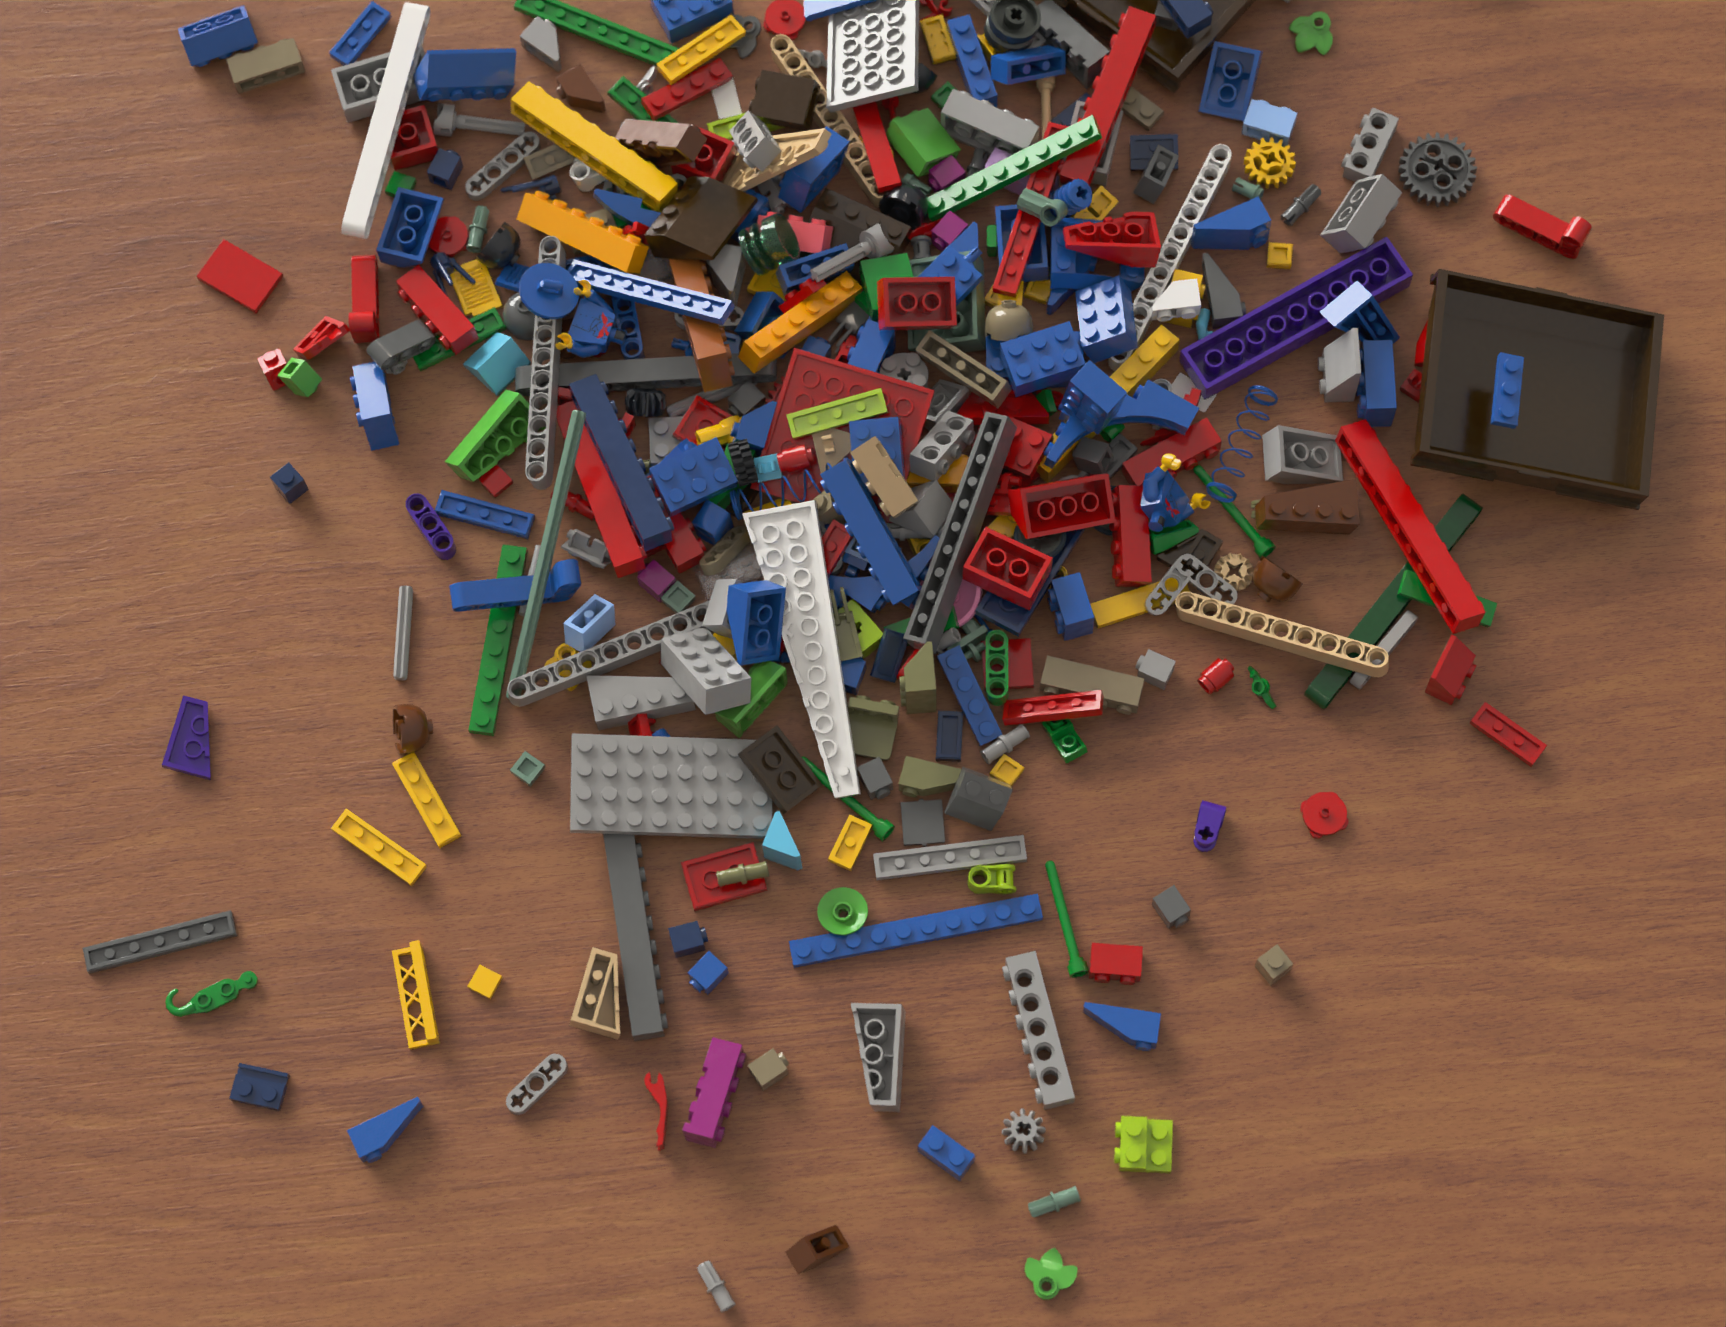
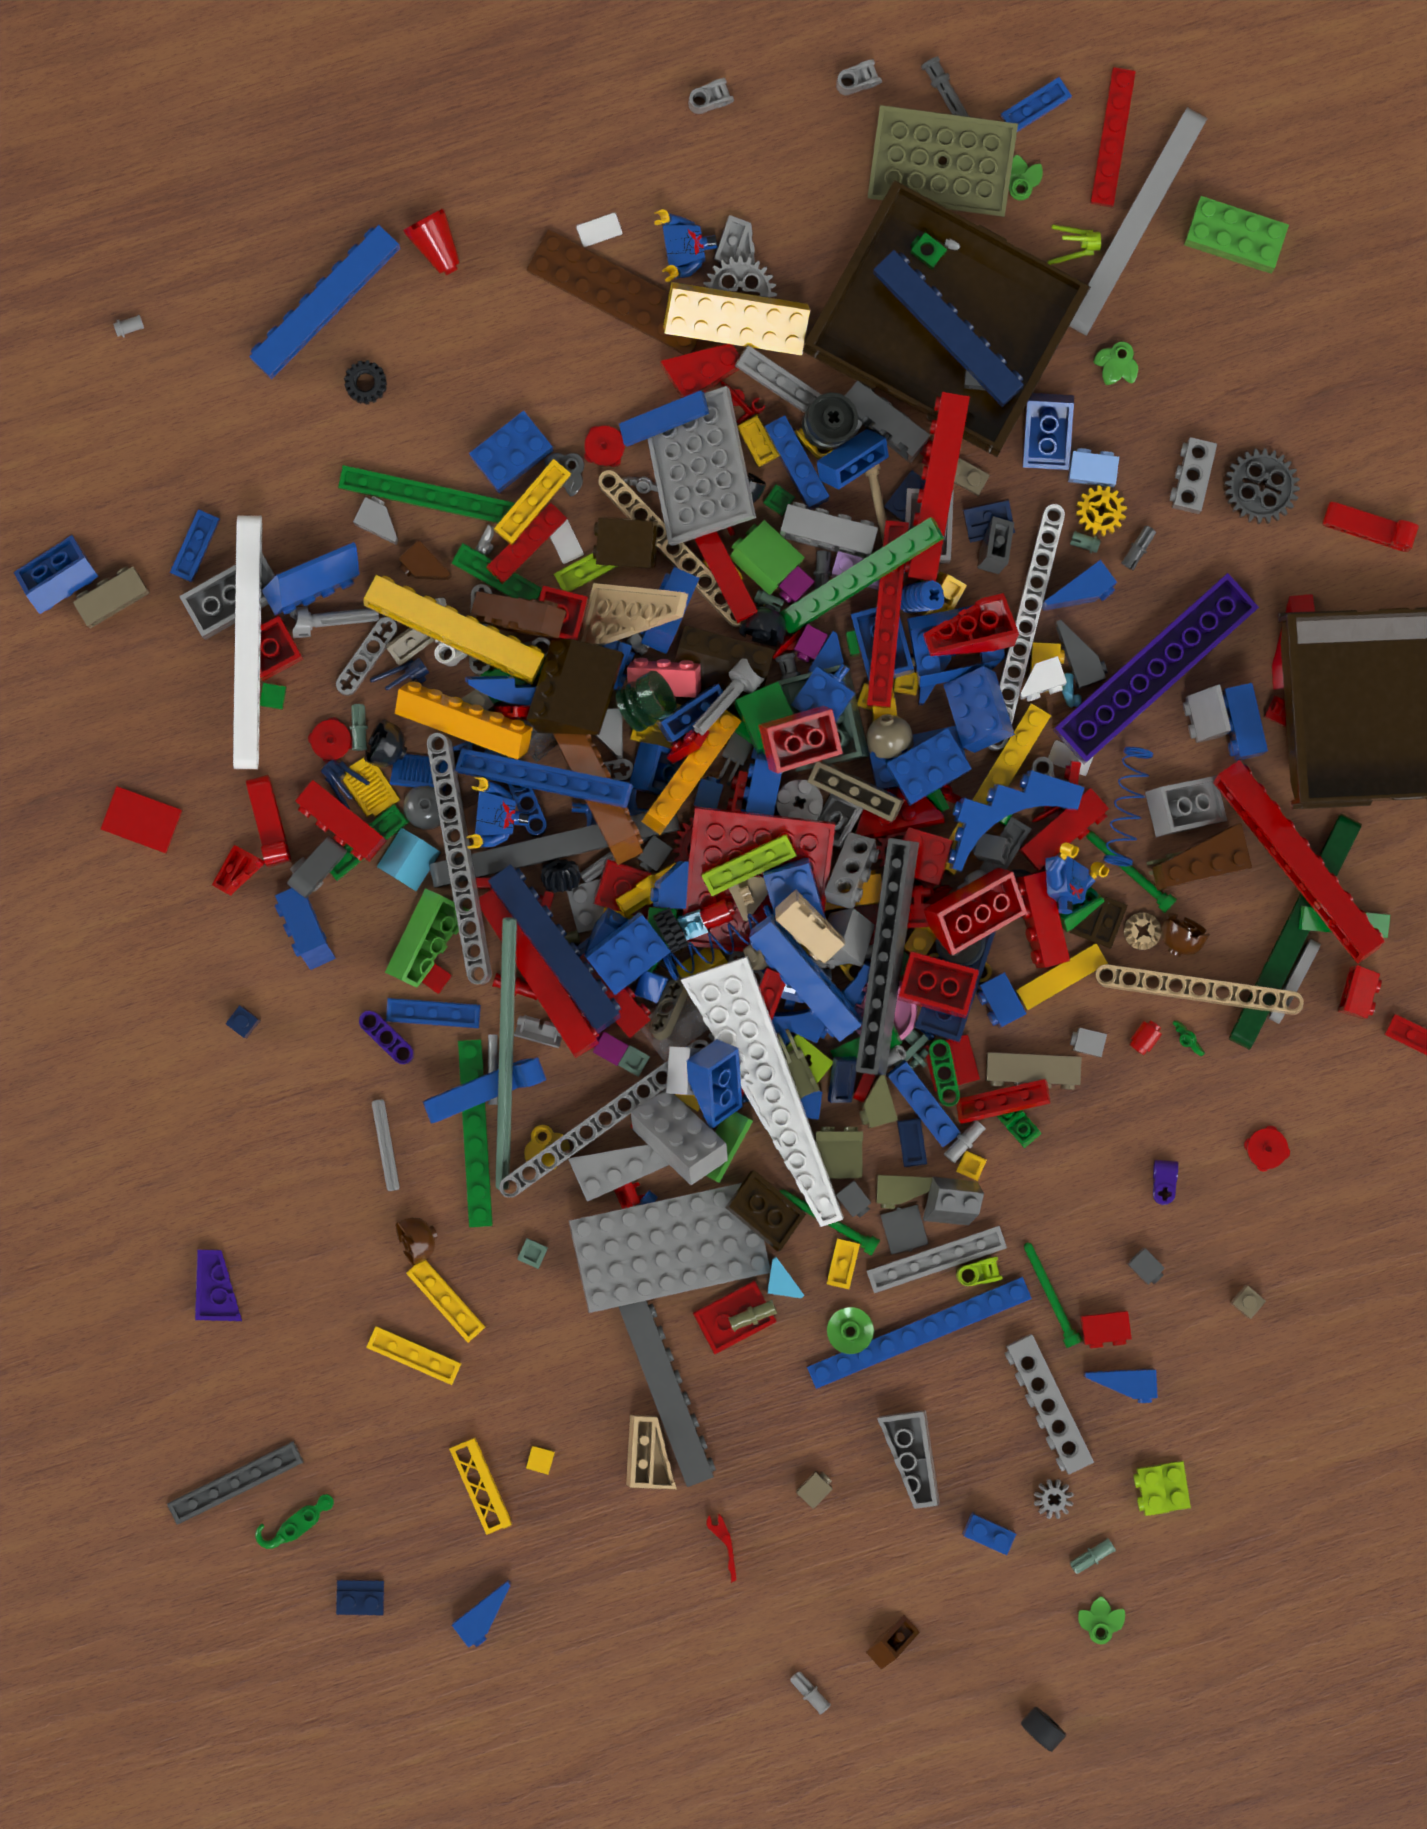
camera: 15 degrees left, 15 degrees up
(272, 364) = (200, 908): red bracket -> none
(300, 377) = (227, 915): bright green brick -> none
(408, 228) = (295, 743): blue slope -> none
(445, 168) = (312, 671): dark blue brick -> none
(518, 1092) = (594, 1555): light grey beam -> none
(548, 291) = (448, 793): blue shield -> none
(589, 623) = (559, 1106): light blue brick -> none
(688, 939) = (716, 1384): dark blue brick -> none
(707, 973) = (740, 1413): blue brick -> none
(714, 1093) = (770, 1522): magenta wedge -> none
(754, 141) = (609, 597): light grey brick -> none
(1040, 207) = (906, 618): sand green piece -> none
(1093, 398) = (988, 811): blue brick -> none
(1183, 578) = (1091, 947): light grey beam -> none
(1279, 255) = (1127, 603): yellow tile -> none
(1360, 310) = (1217, 664): blue wedge -> none
(1361, 214) = (1199, 552): light grey brick -> none
(1507, 390) = (1370, 722): blue plate -> none

